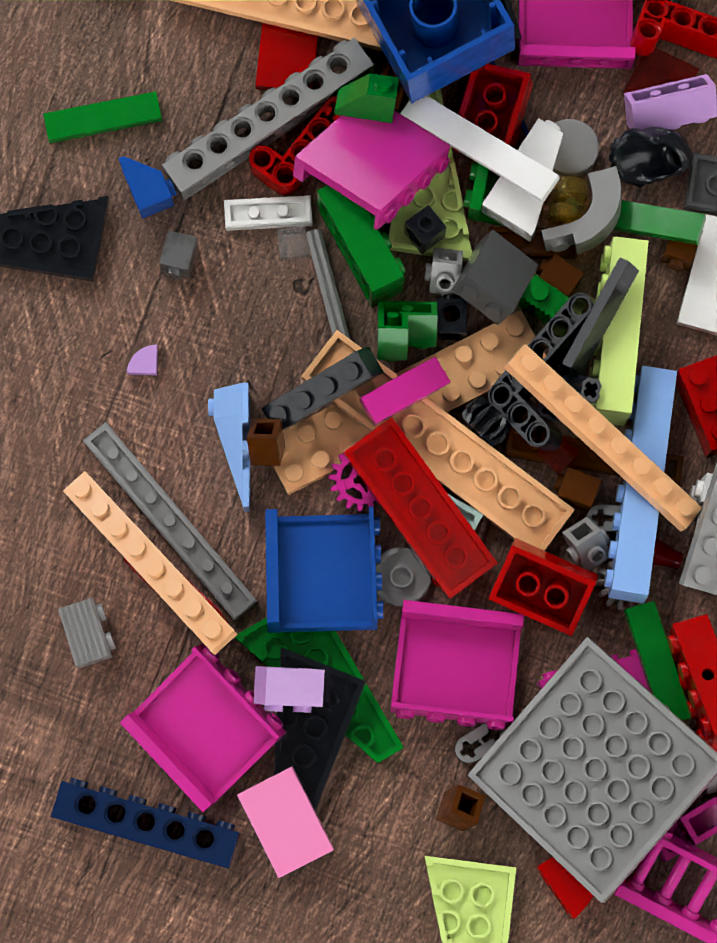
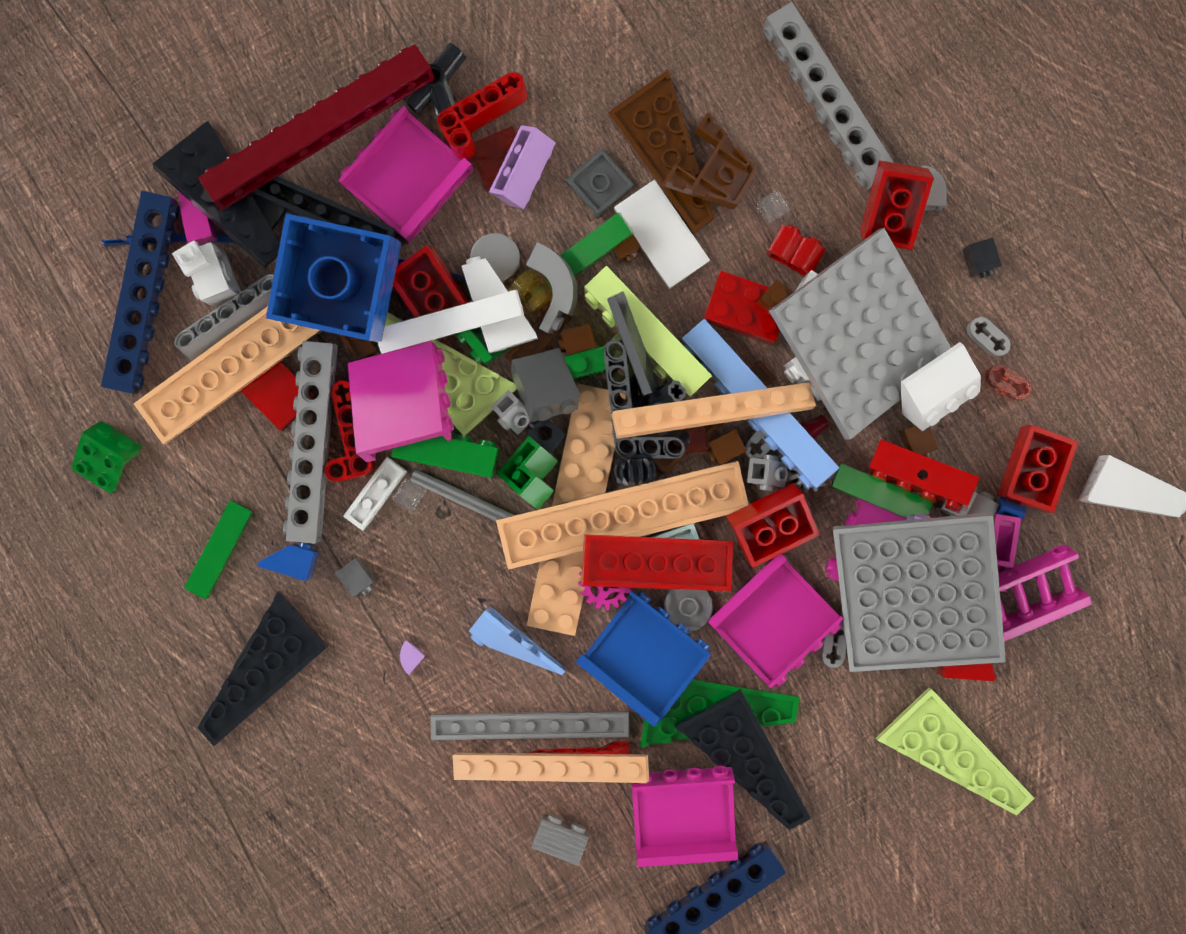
camera: 45 degrees left, 10 degrees up
(266, 442) = (532, 627): reddish brown brick -> none
(285, 822) = (786, 812): bright pink tile -> none
(288, 687) = (708, 748): lavender brick -> none
(324, 388) = (530, 562): black arch -> none
(368, 98) = (354, 368): green slope -> none
(404, 391) = (575, 511): dark pink slope -> none
(425, 229) = (474, 404): black brick -> none
(460, 807) = (867, 694): reddish brown brick -> none
(649, 155) = (545, 211): black piece -> none

